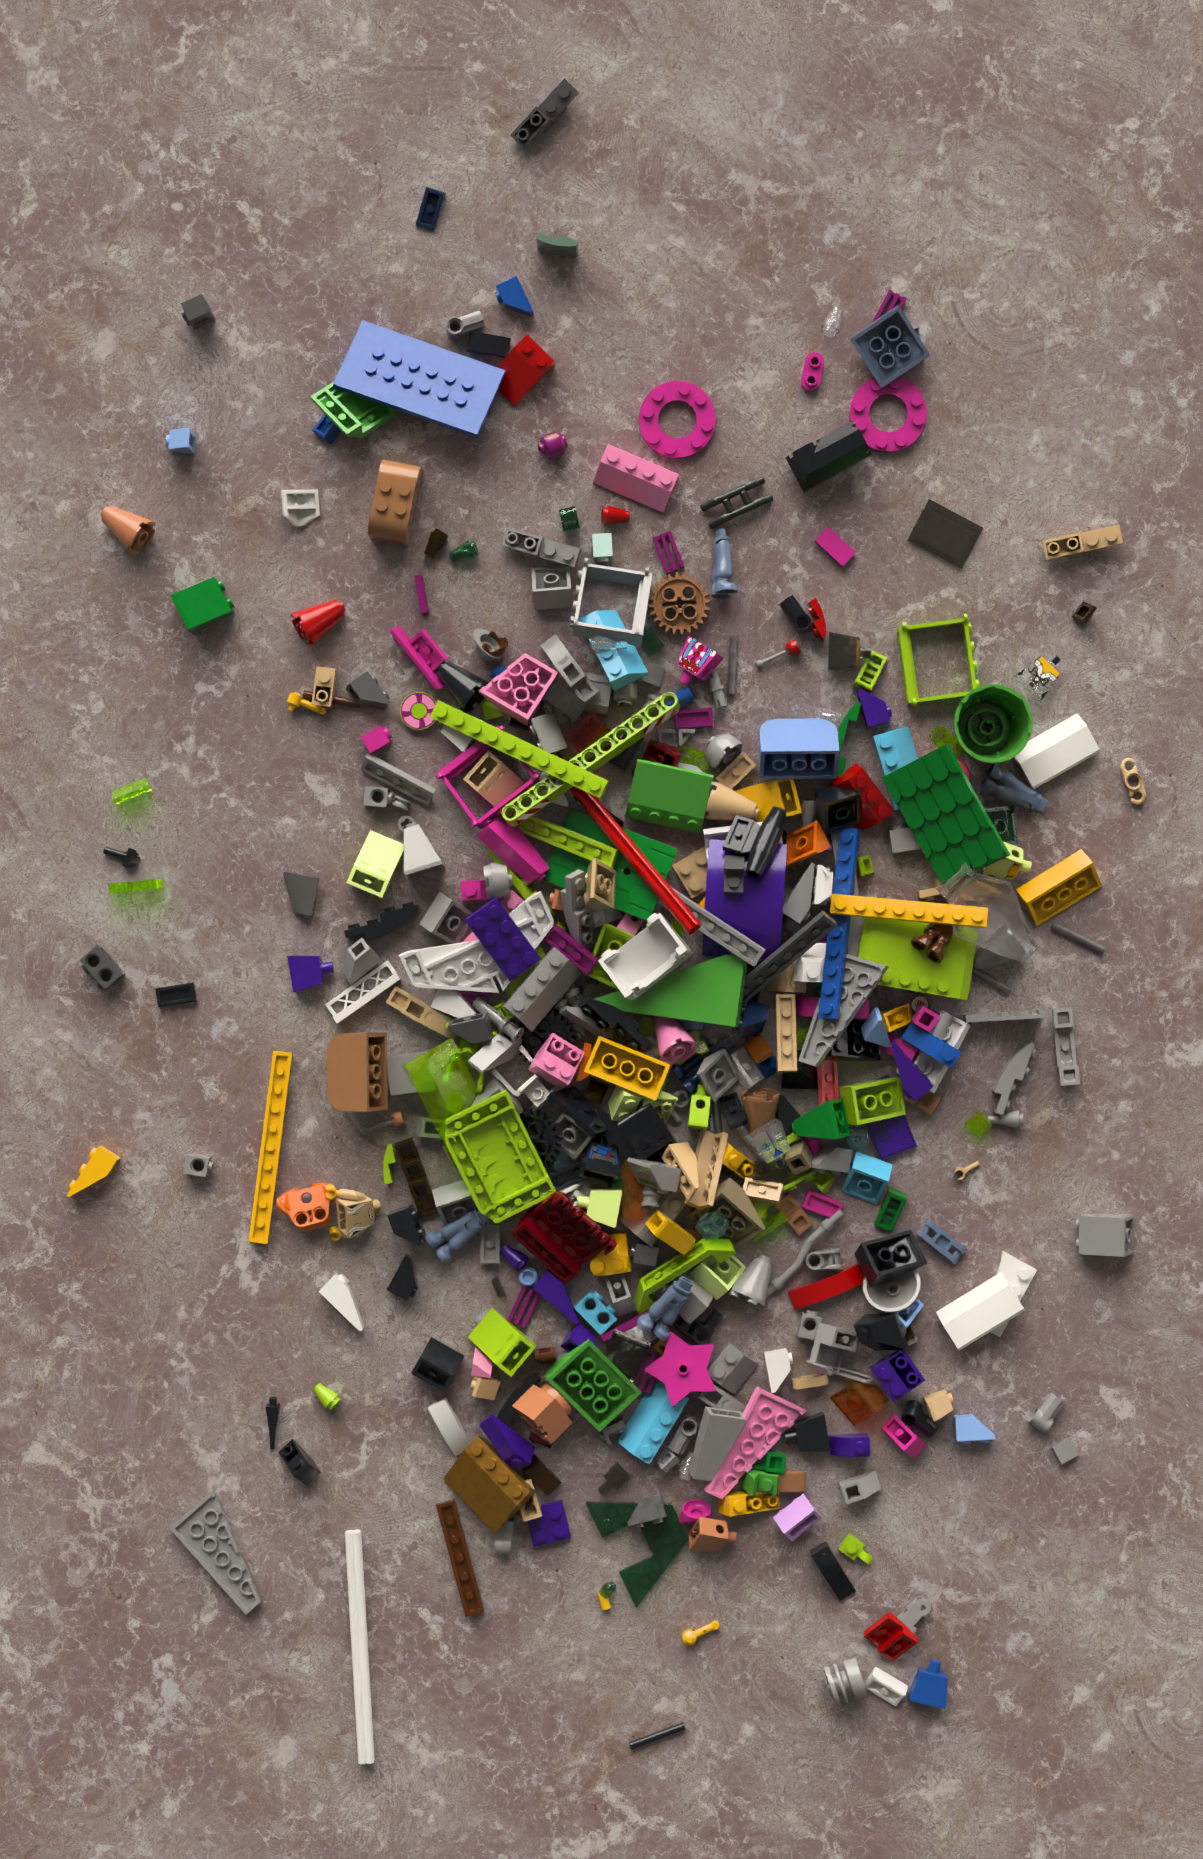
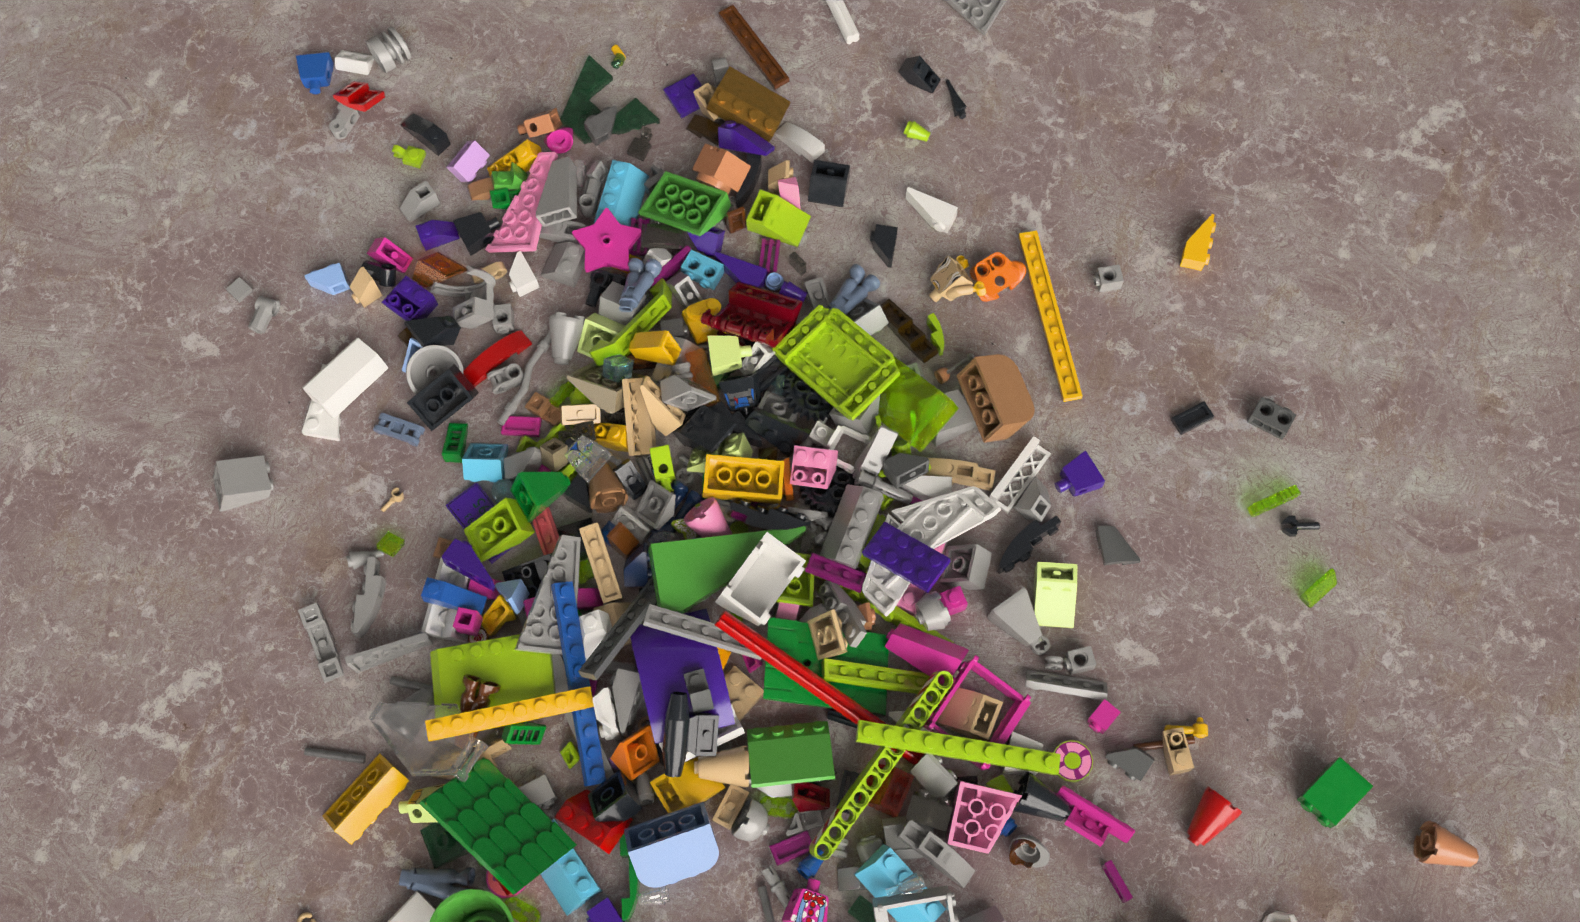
camera: 160 degrees right, 20 degrees down
(406, 1225) = (900, 284): black slope -> none
(689, 1636) = (535, 48): yellow piece -> none
(908, 894) = (509, 738): none -> green slope

